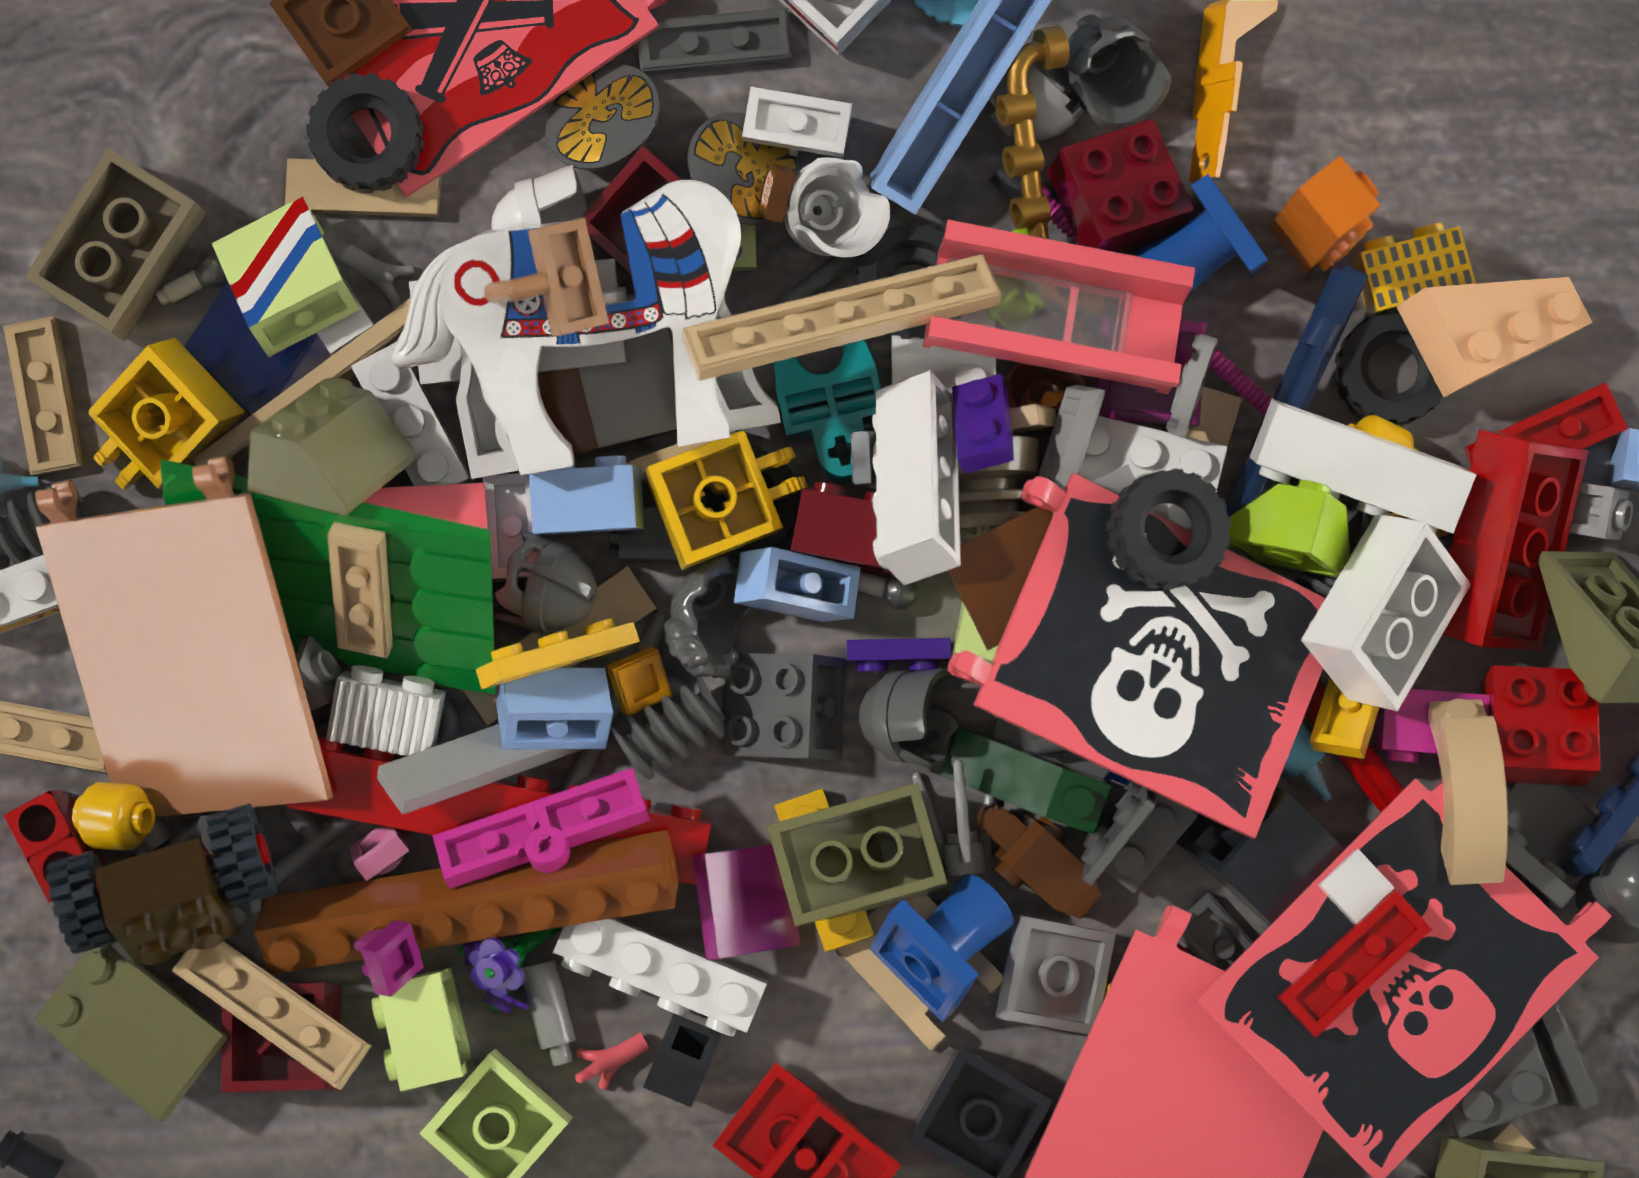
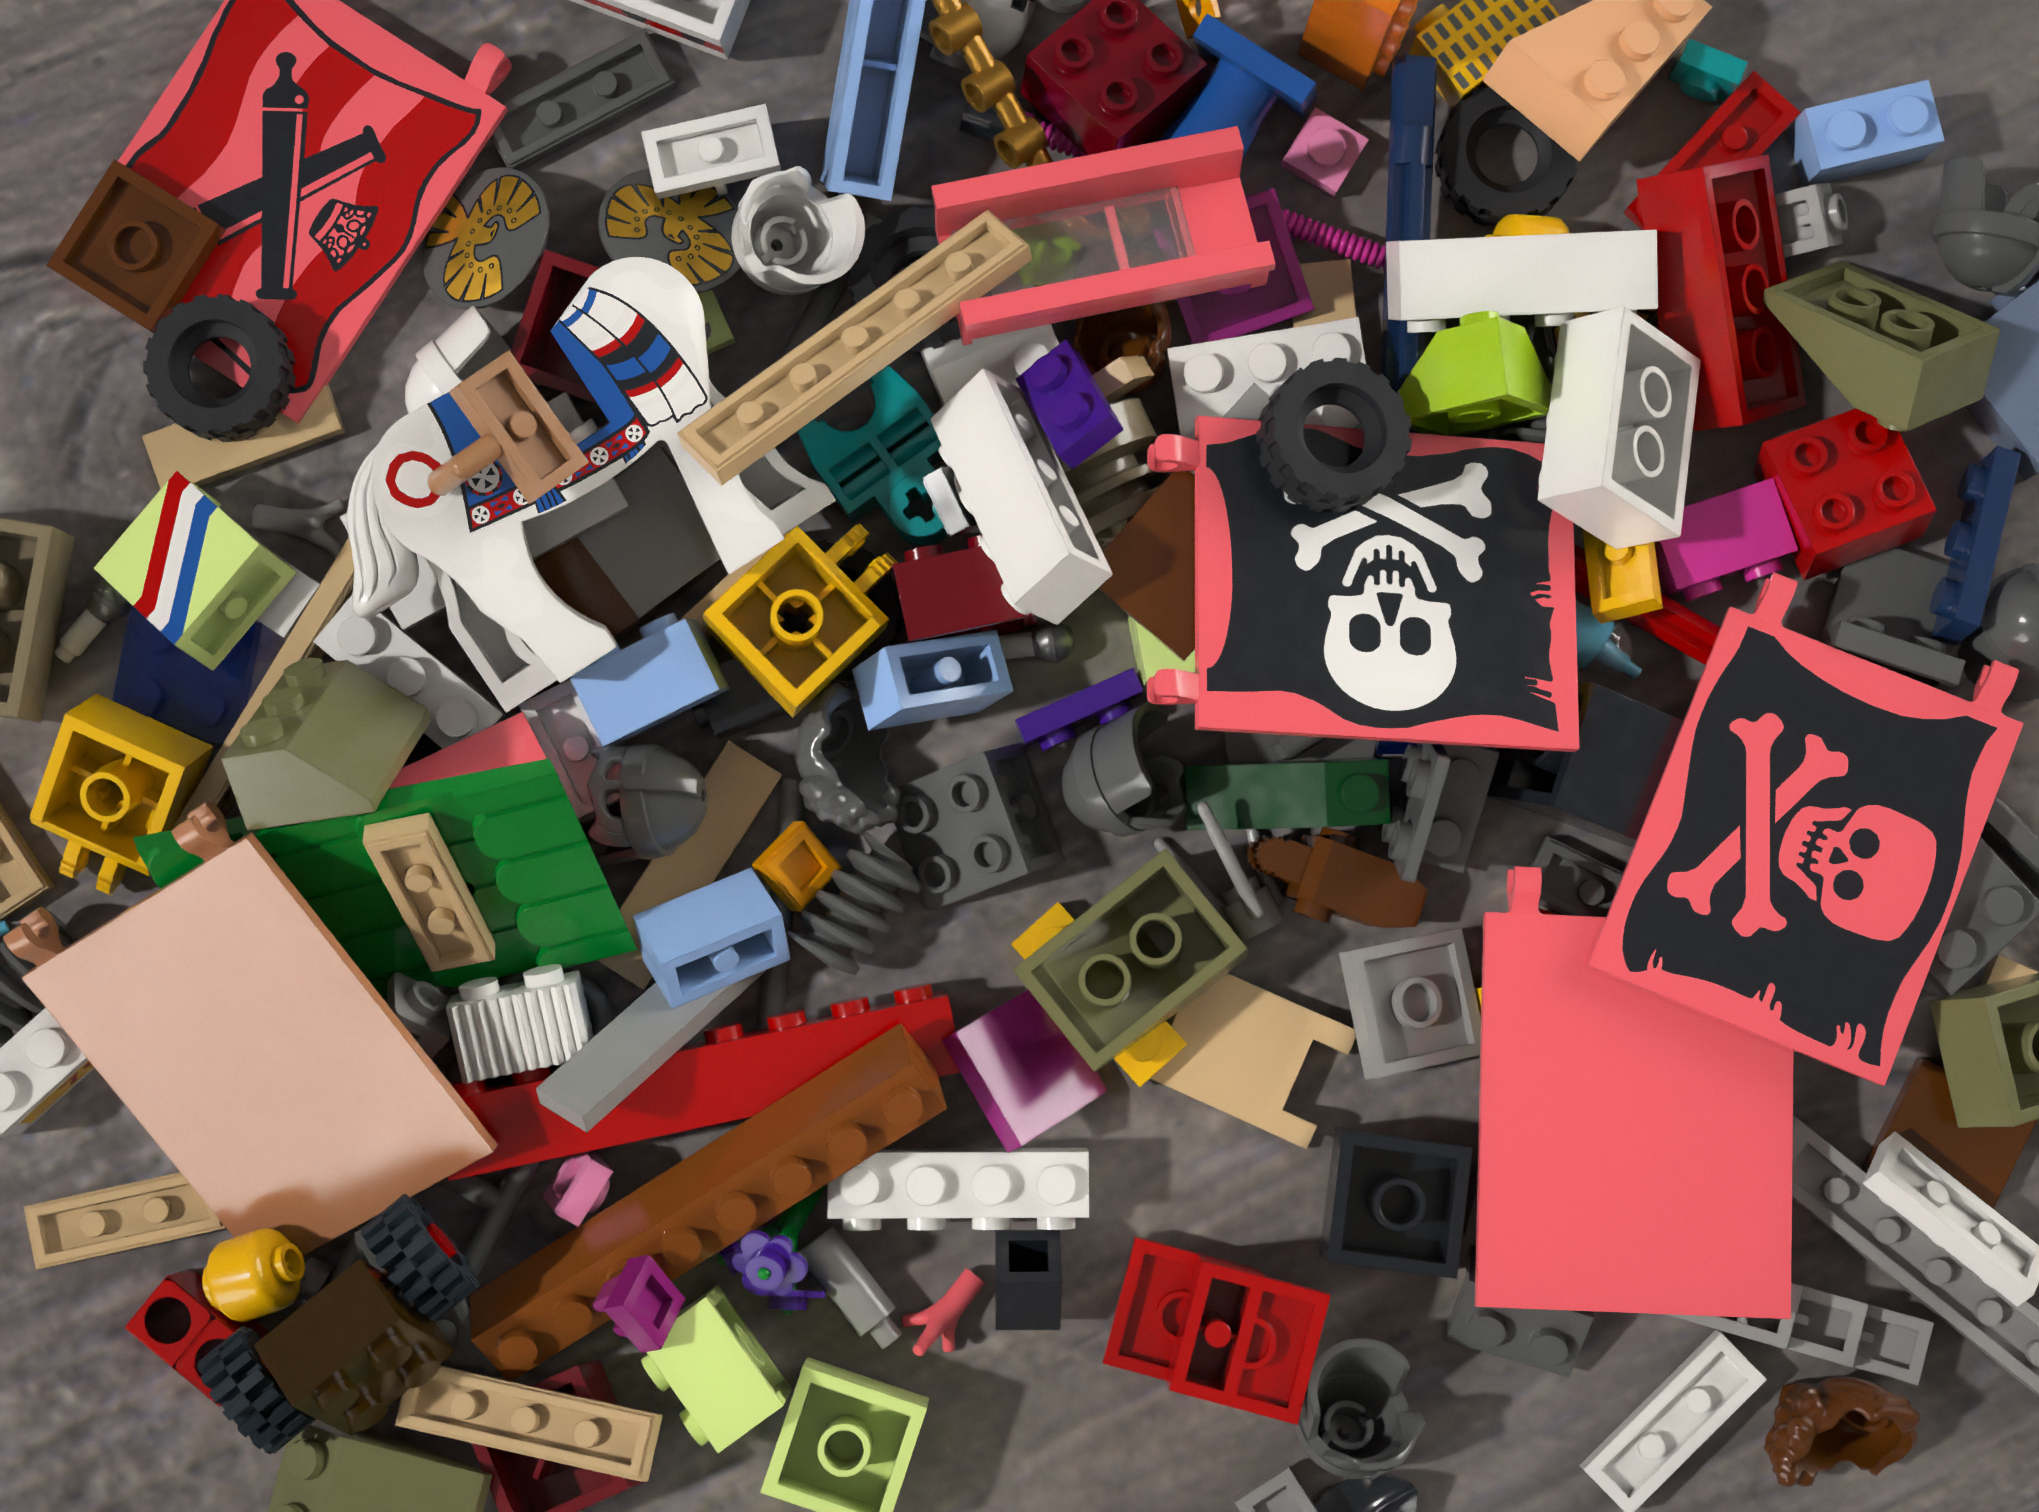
camera: 25 degrees left, 0 degrees up
(541, 829) = (755, 1083): dark pink hinge -> none
(556, 652) = (687, 871): yellow plate -> none
(776, 192) = (721, 240): reddish brown tile -> none
(933, 952) = (1266, 1034): blue plant -> none
(1071, 433) = (1175, 373): light grey tile -> none
(1191, 385) = (1289, 263): light grey tile -> none
(1257, 309) = (1324, 152): none -> bright pink plate
(1354, 963) = (1751, 845): red plate -> none
(1355, 886) = (1715, 757): white tile -> none
(1472, 791) = (1807, 591): tan arch -> none
(1569, 368) = (1706, 72): none -> teal plate

